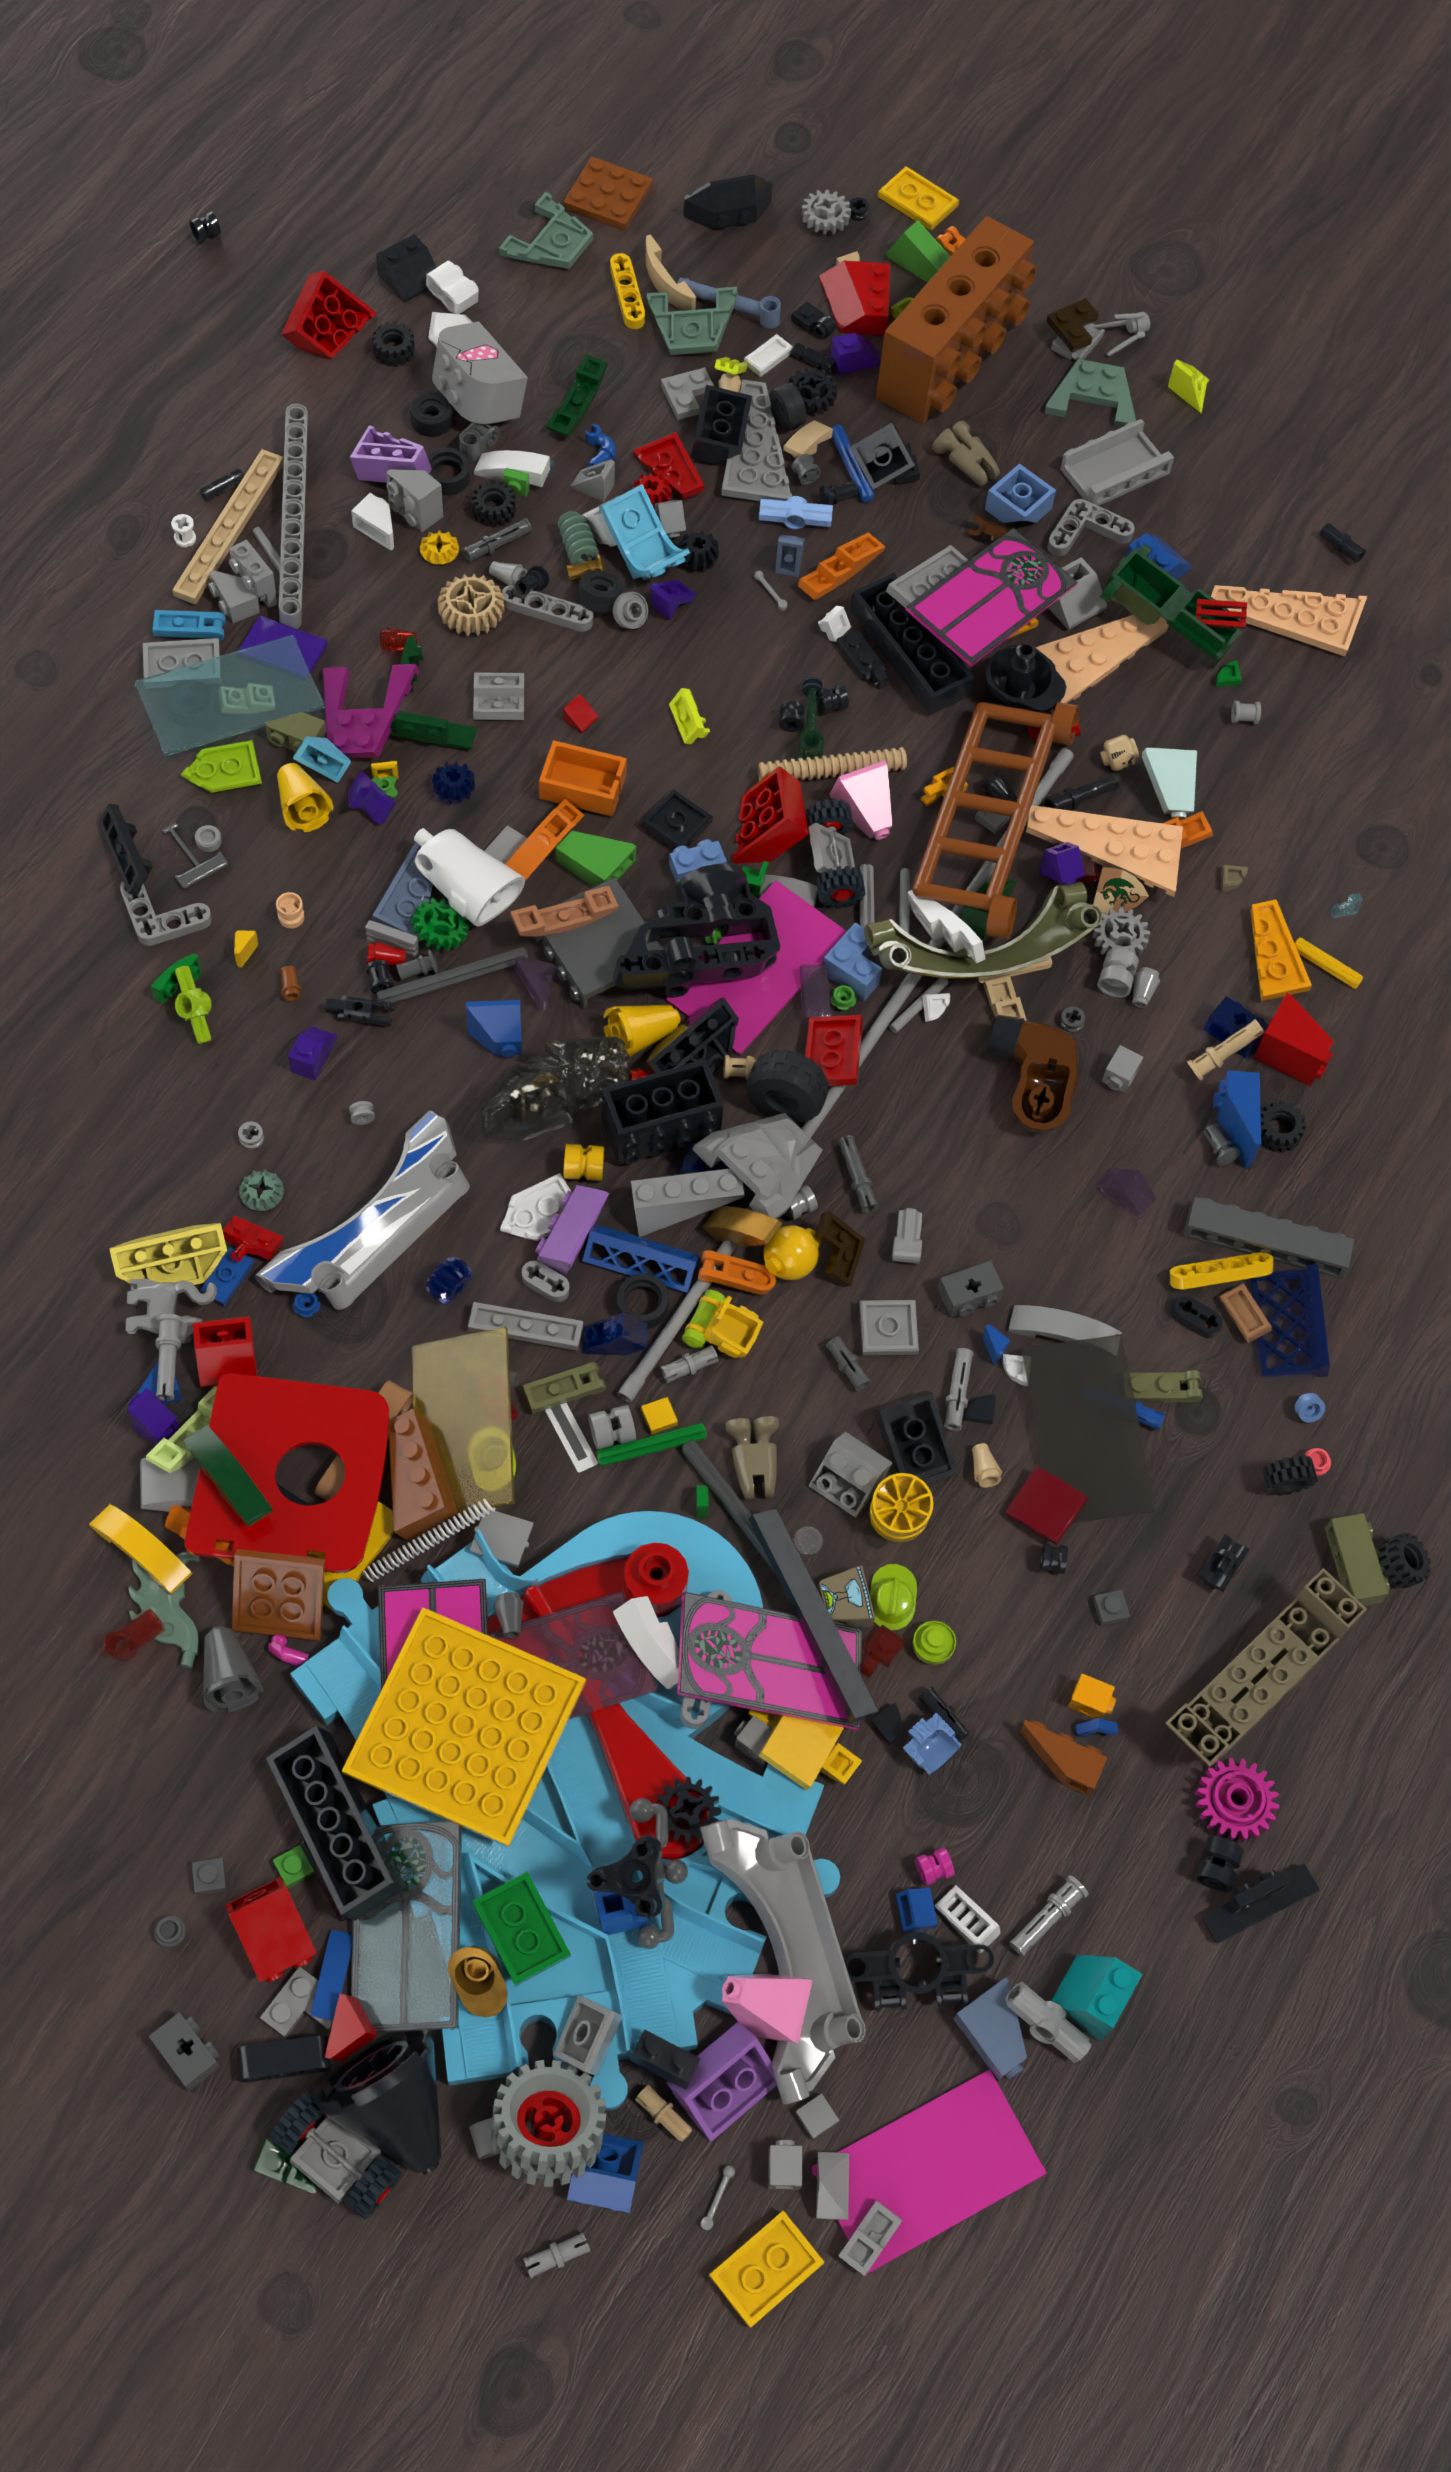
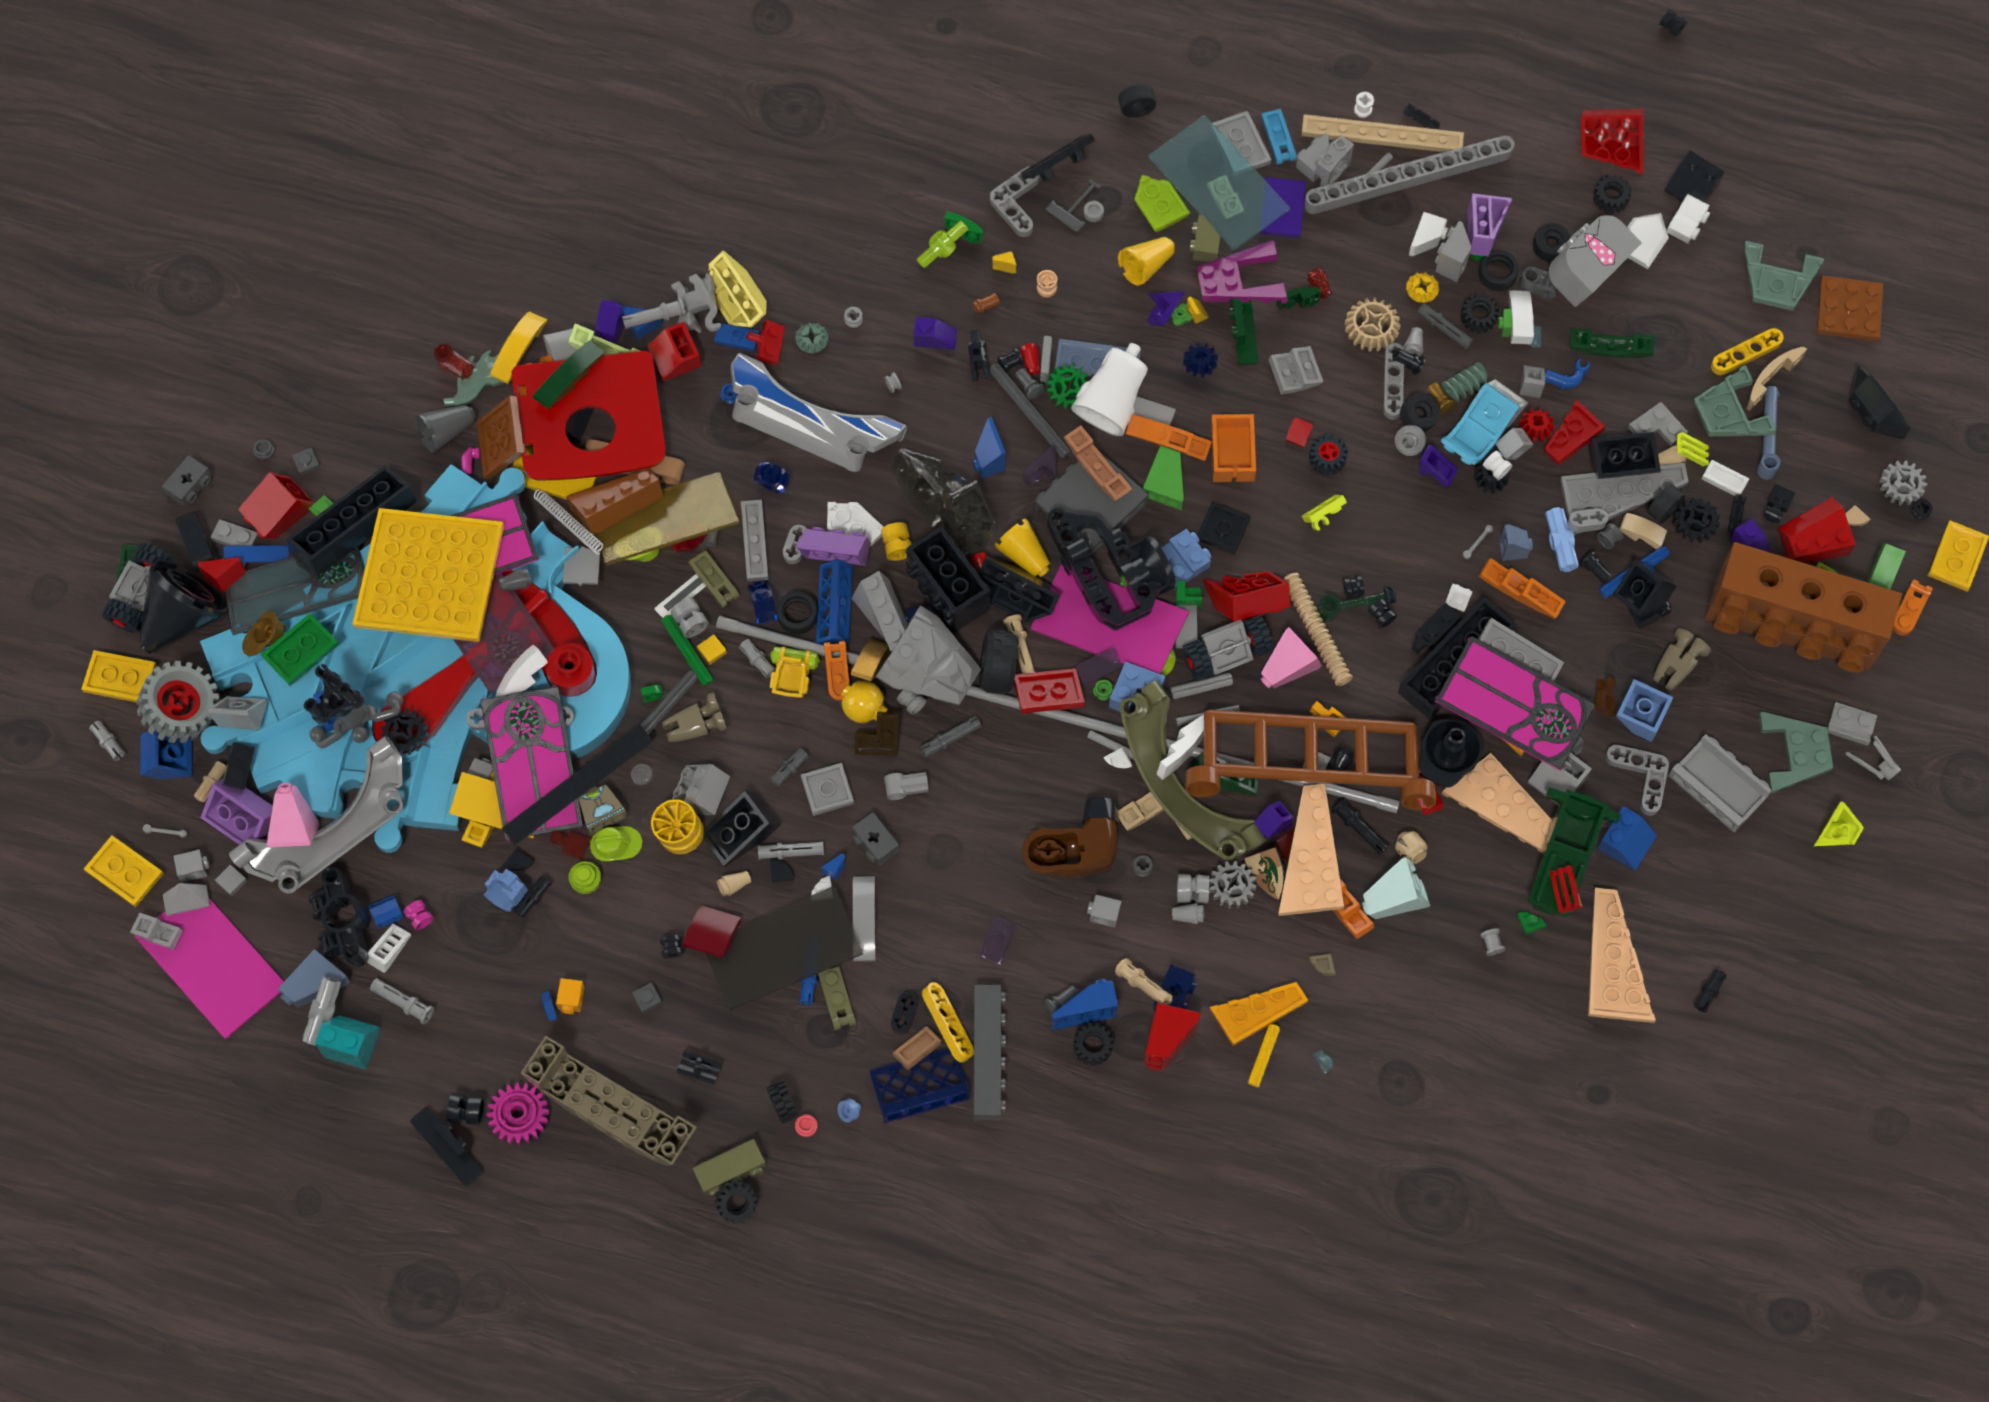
camera: 80 degrees right, 5 degrees up
(82, 745) = (1137, 101): none -> black tyre
(322, 757) = (1187, 262): medium azure slope -> none
(462, 2216) = (116, 676): none -> yellow plate
(618, 694) = (1333, 449): none -> black wheel
(698, 531) = (1497, 465): none -> white wheel
(789, 477) = (1587, 519): none -> light grey beam
(1070, 323) = (1859, 707): dark brown plate -> none
(1070, 1762) = (517, 990): dark orange slope -> none

